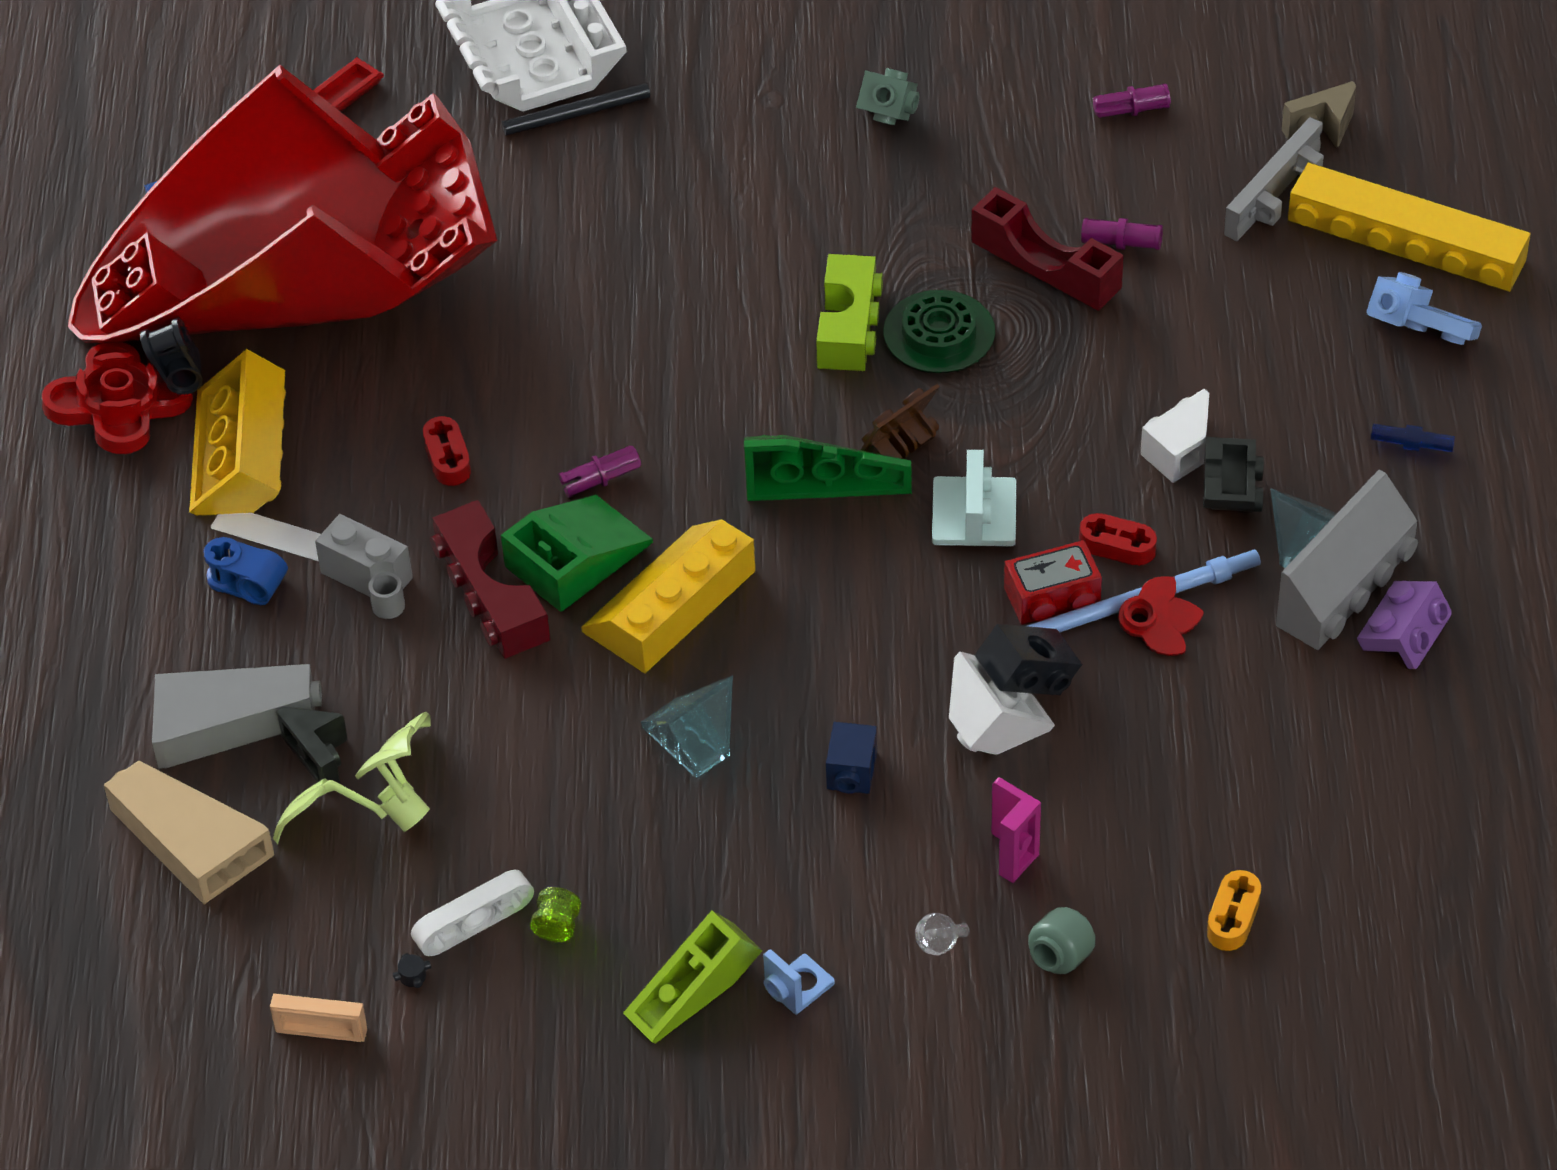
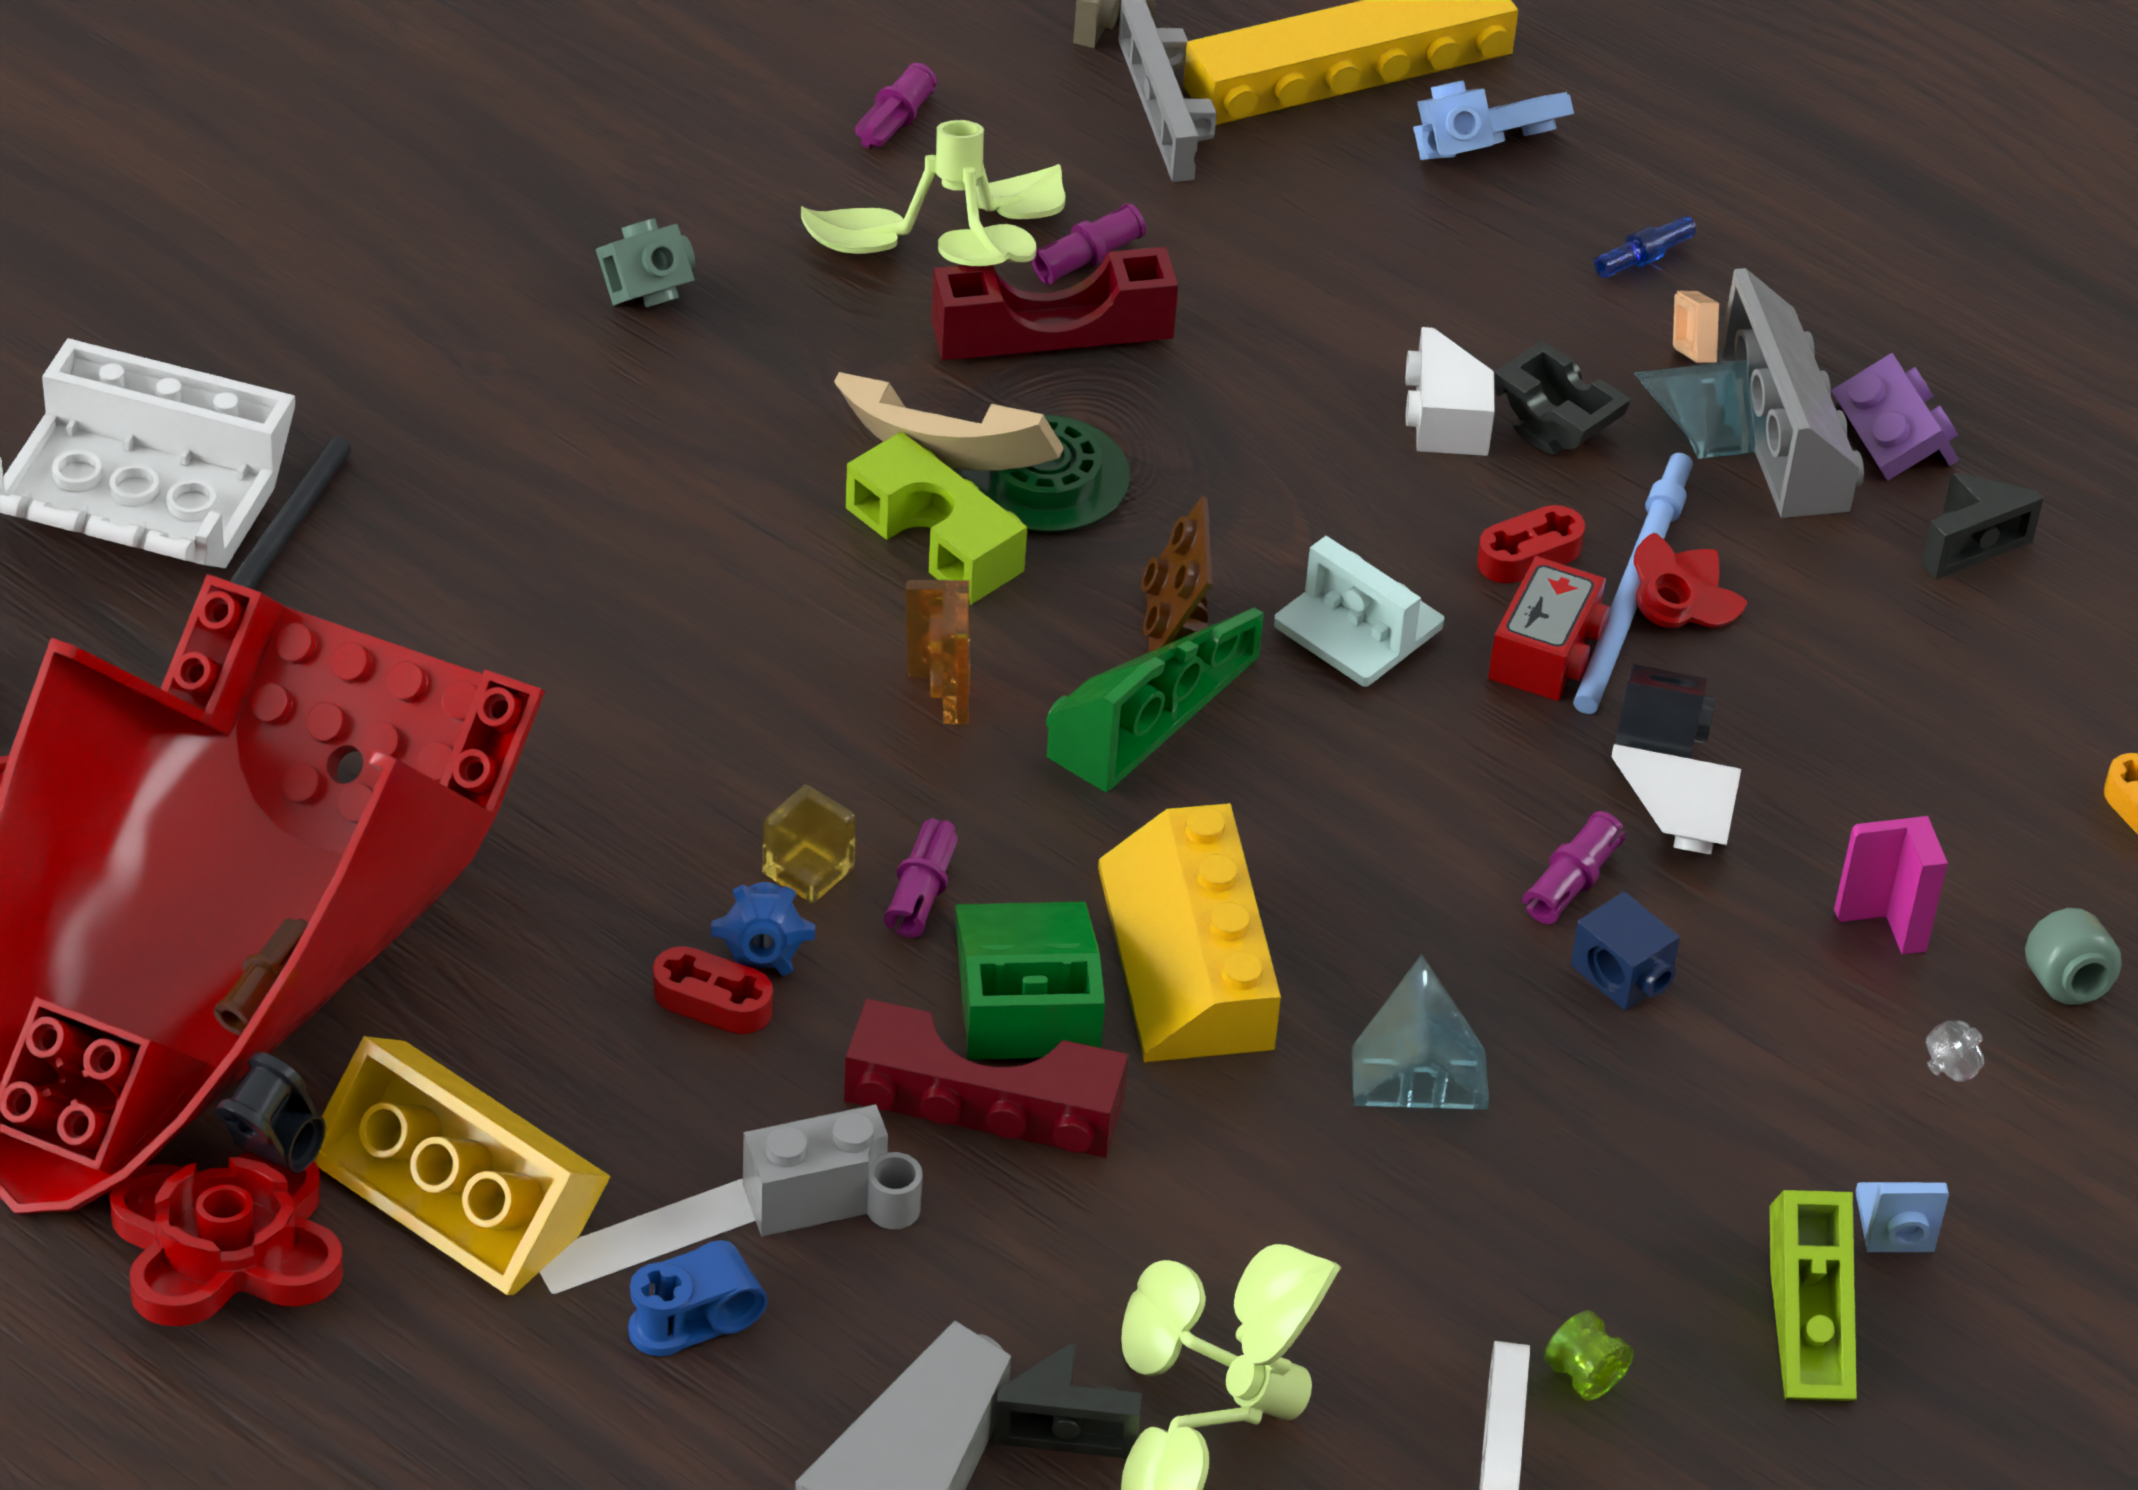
camera: 55 degrees left, 5 degrees down
(495, 436) = (763, 927): none -> blue rock
(568, 416) = (809, 843): none -> clear yellow panel
(744, 373) = (941, 642): none -> clear orange bracket
(891, 250) = (1001, 442): none -> tan slope
(892, 702) = (1574, 867): none -> magenta pin
(1073, 140) = (961, 168): none -> yellowish green plant
(1340, 489) = (1696, 326): none -> light nougat tile
(1361, 709) = (1979, 523): none -> pearl dark grey slope

